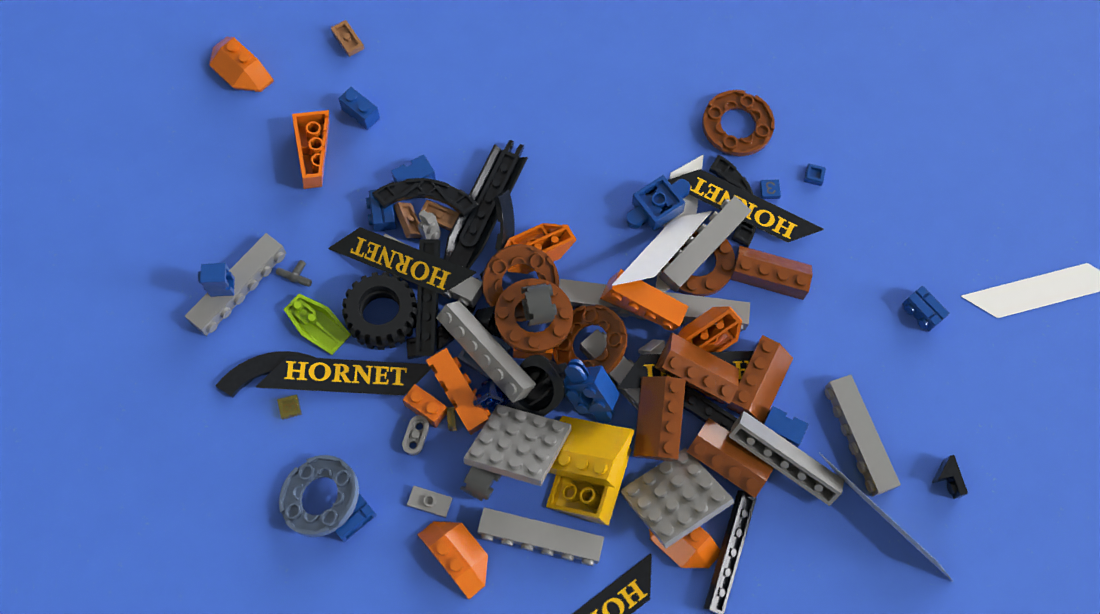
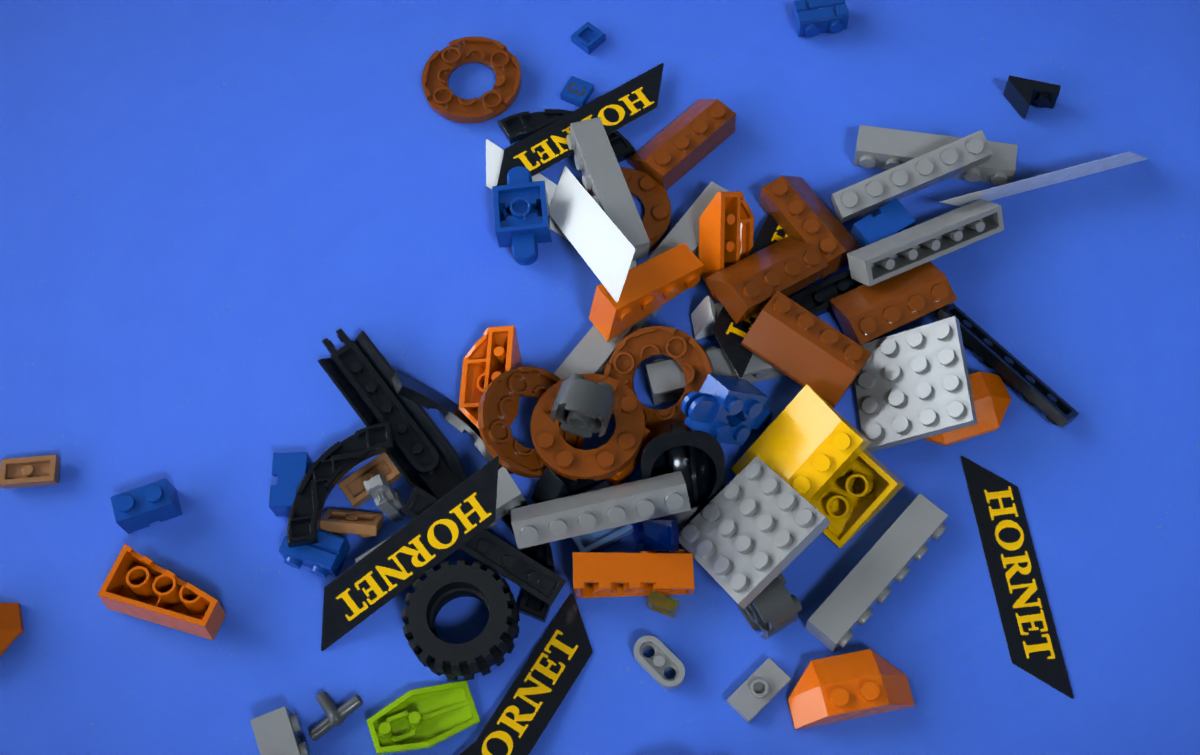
camera: 50 degrees left, 5 degrees down
(425, 405) = (626, 627): orange brick -> none
(829, 425) = (911, 176): none -> light grey brick

